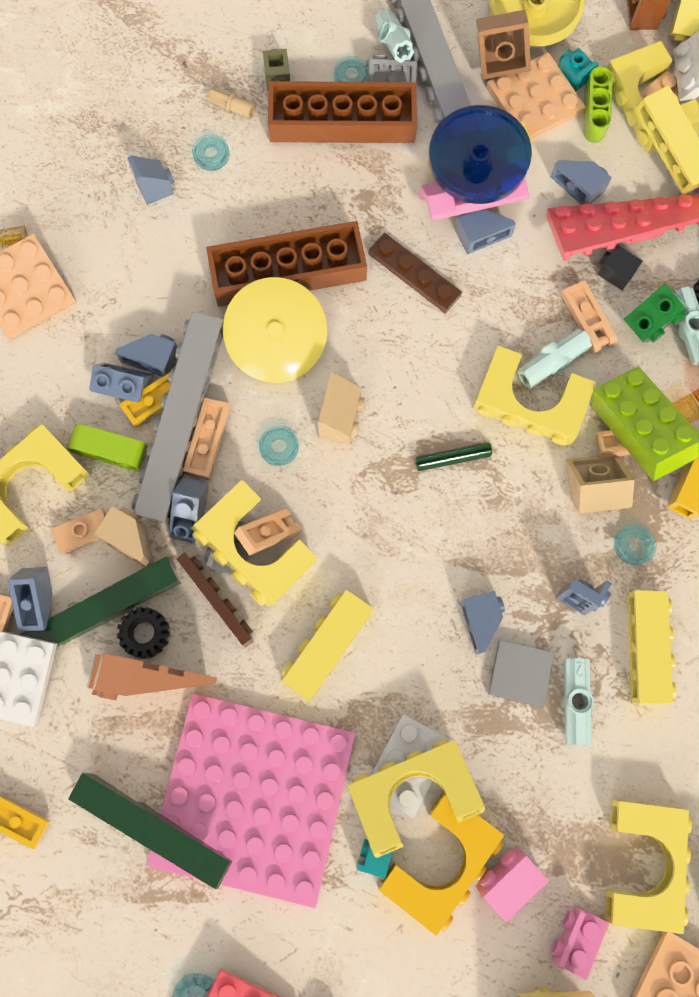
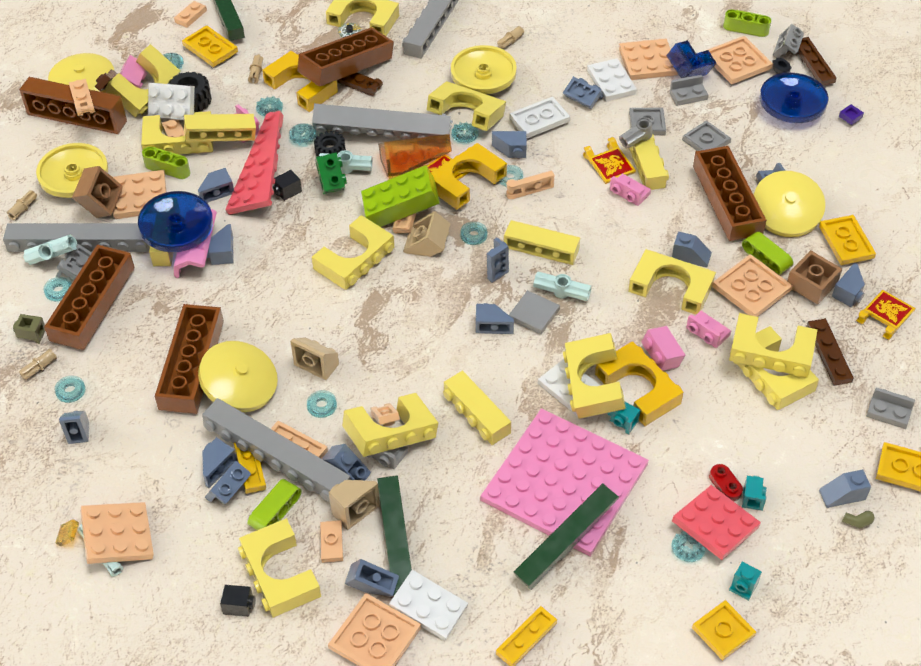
camera: 70 degrees left, 25 degrees down
(126, 677) = (457, 497): nougat wedge -> none
(127, 627) = (425, 526): black tyre -> none
(223, 607) = (421, 464): reddish brown plate -> none
(415, 273) = (236, 291): reddish brown plate -> none
(453, 456) = (374, 308): dark green axle -> none
(554, 358) = (332, 233): light aqua piece -> none
(576, 67) = (132, 164): teal brick -> none
(589, 315) = (313, 210): light nougat plate -> none

